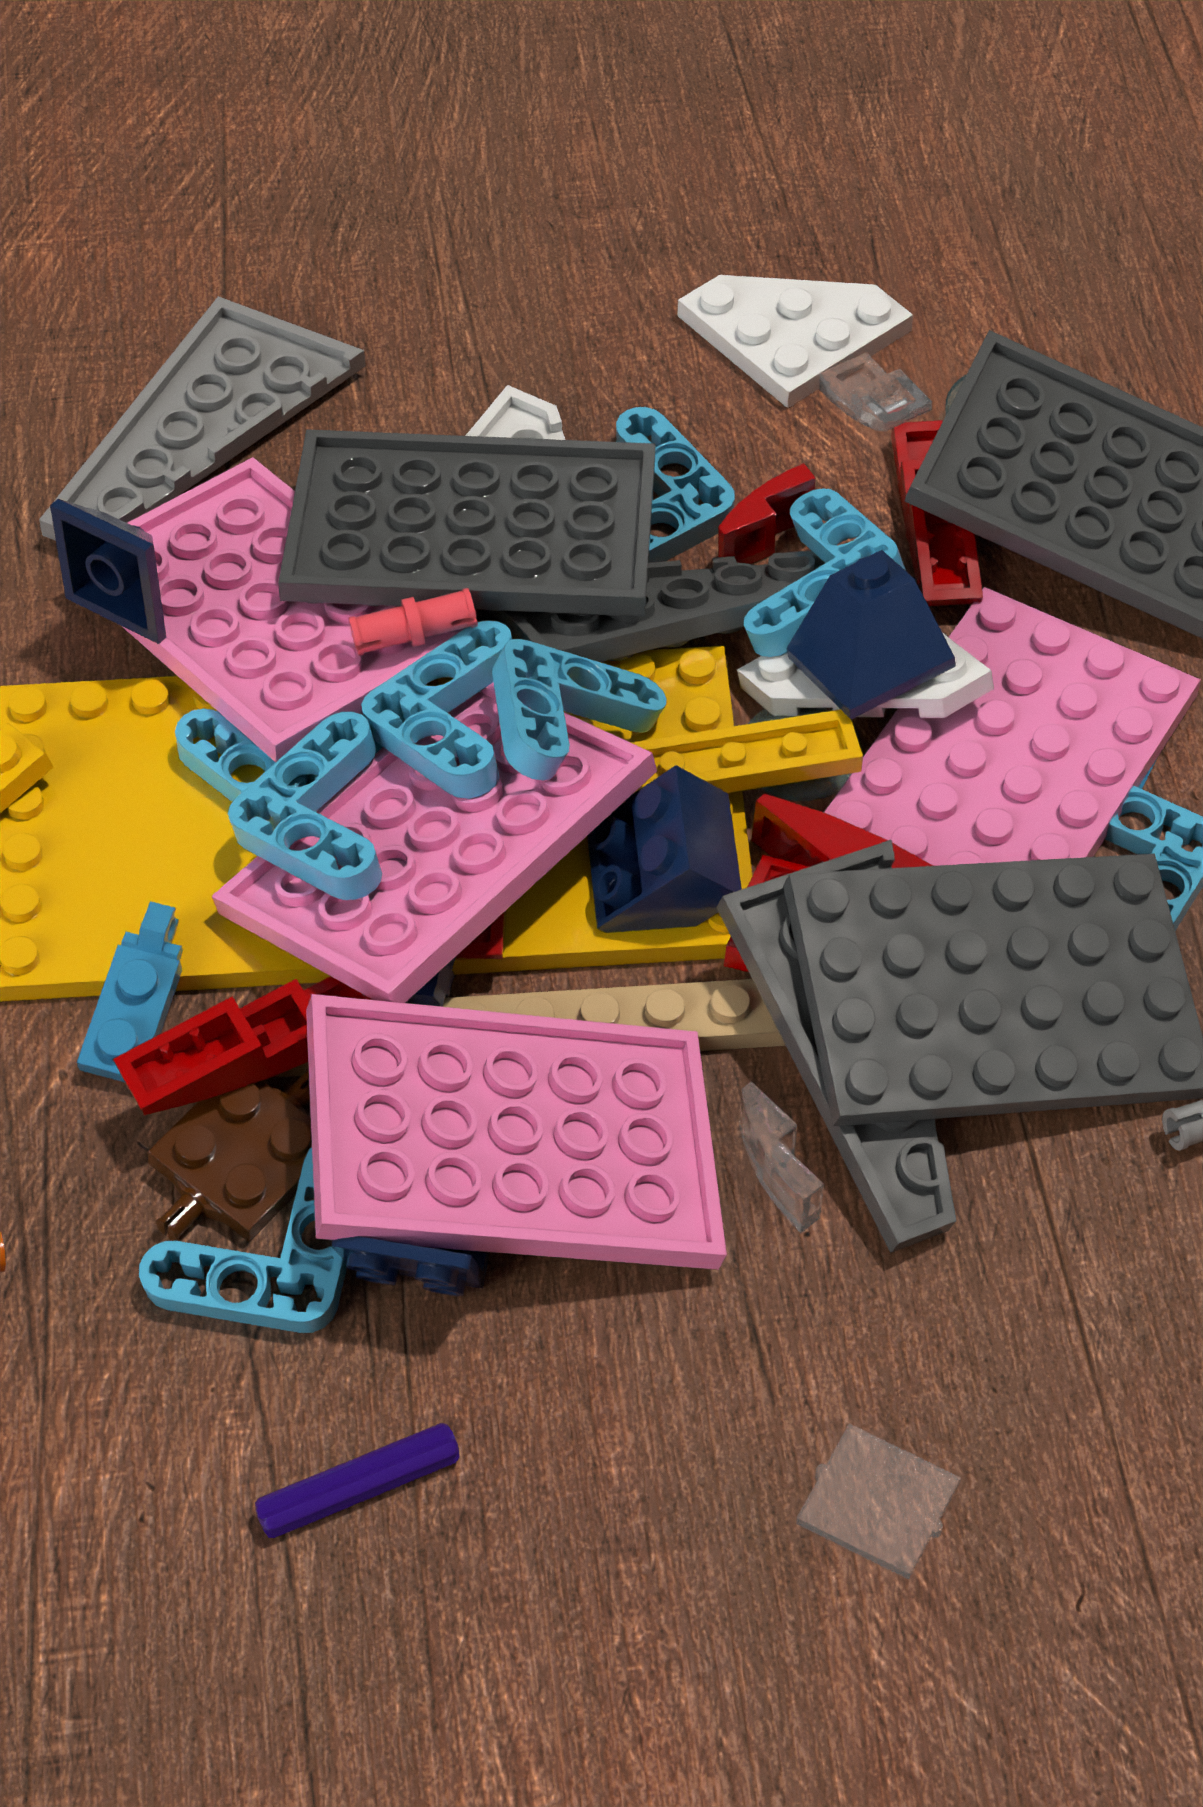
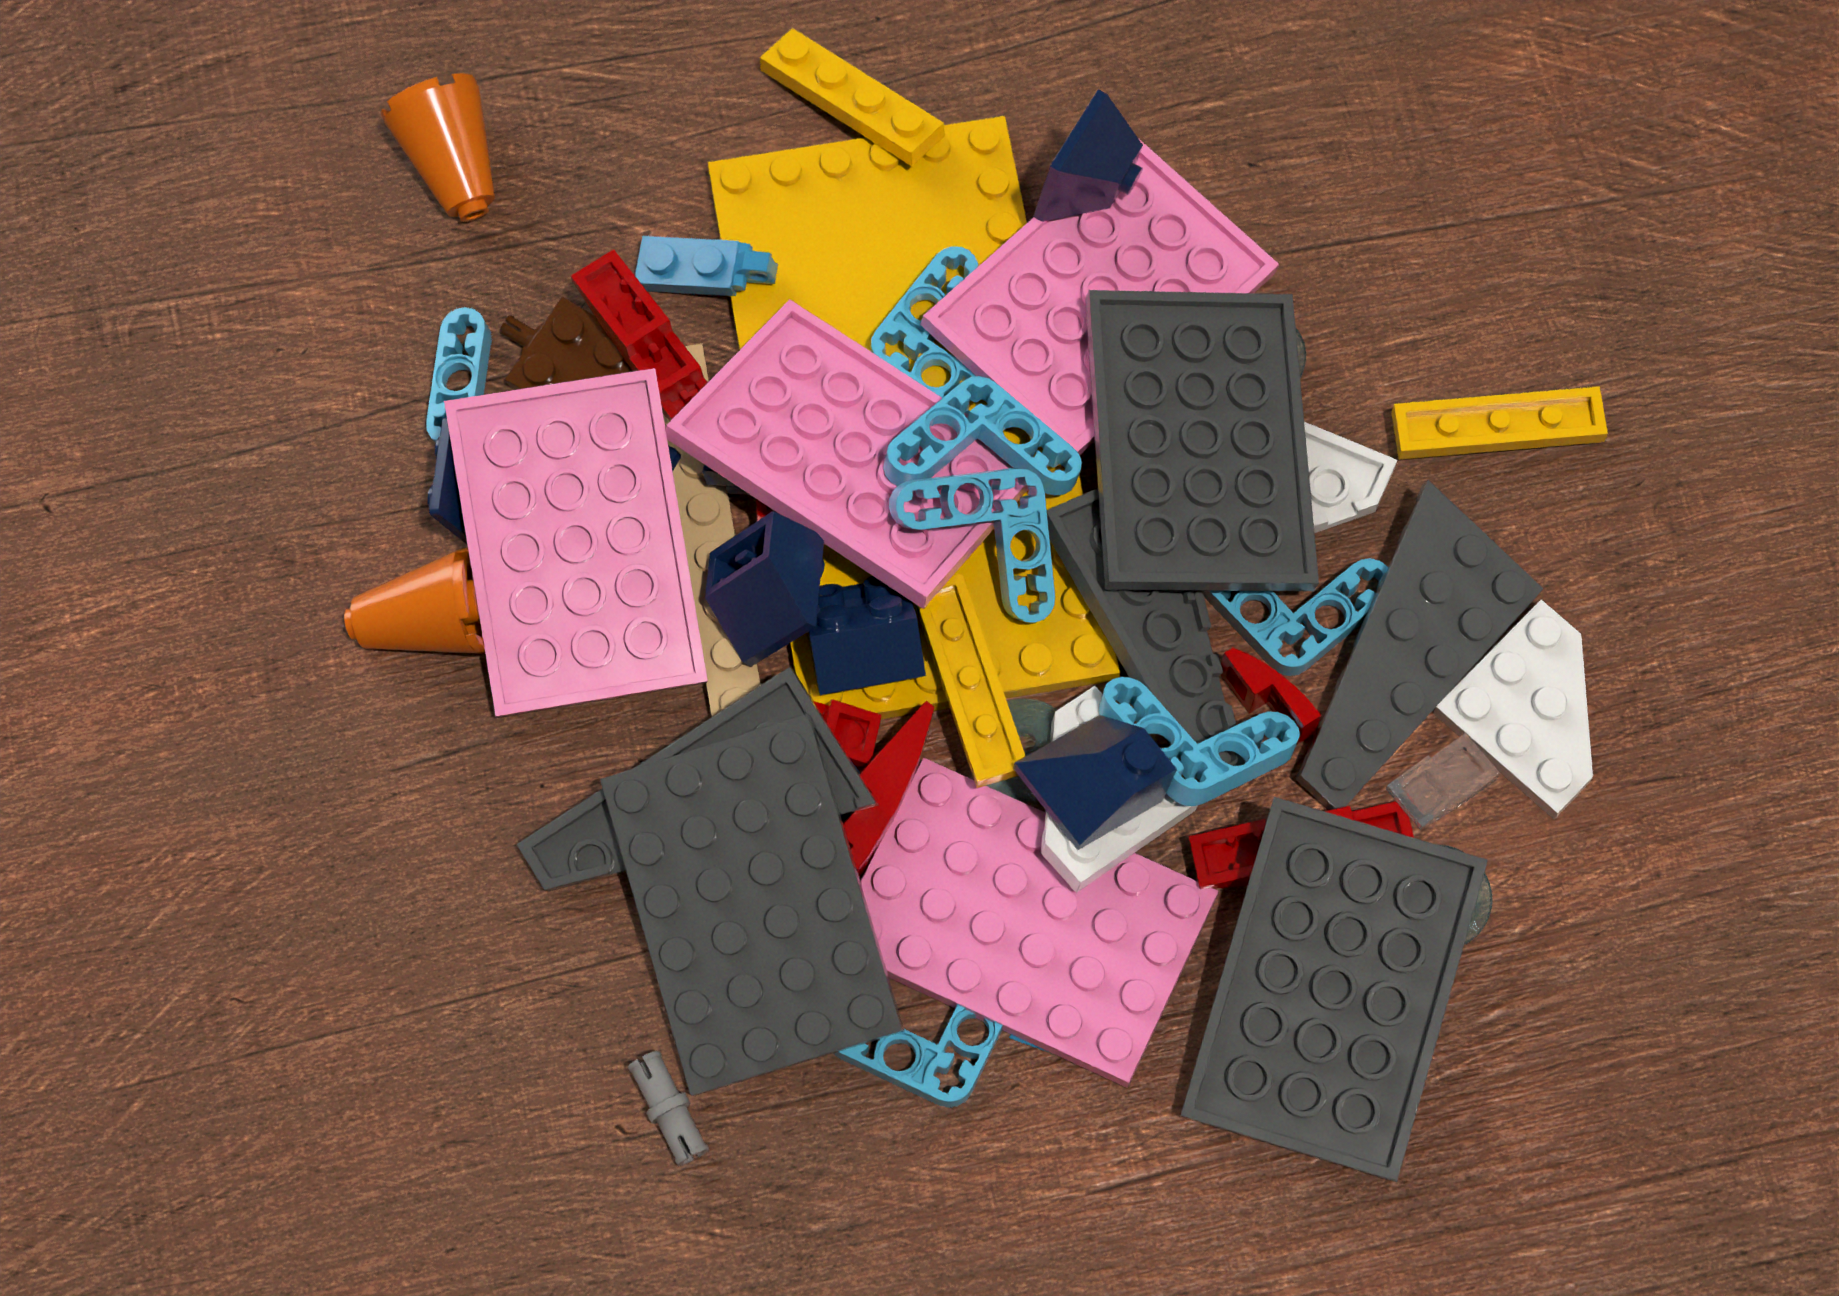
camera: 85 degrees right, 15 degrees up
(205, 405) = (1350, 226): light grey wing -> none
(336, 754) = (867, 338): medium azure beam -> none
(357, 1480) = (306, 484): dark purple axle -> none
(413, 621) = (1063, 401): coral pin -> none
(473, 310) = (1499, 422): none -> yellow plate
(574, 1319) = (421, 610): none -> orange cone
(607, 929) = (766, 585): none -> dark blue slope
(716, 396) = (1425, 629): none -> dark grey wing
(770, 1146) = (606, 741): clear slope -> none
(878, 1501) = (311, 849): clear piece -> none

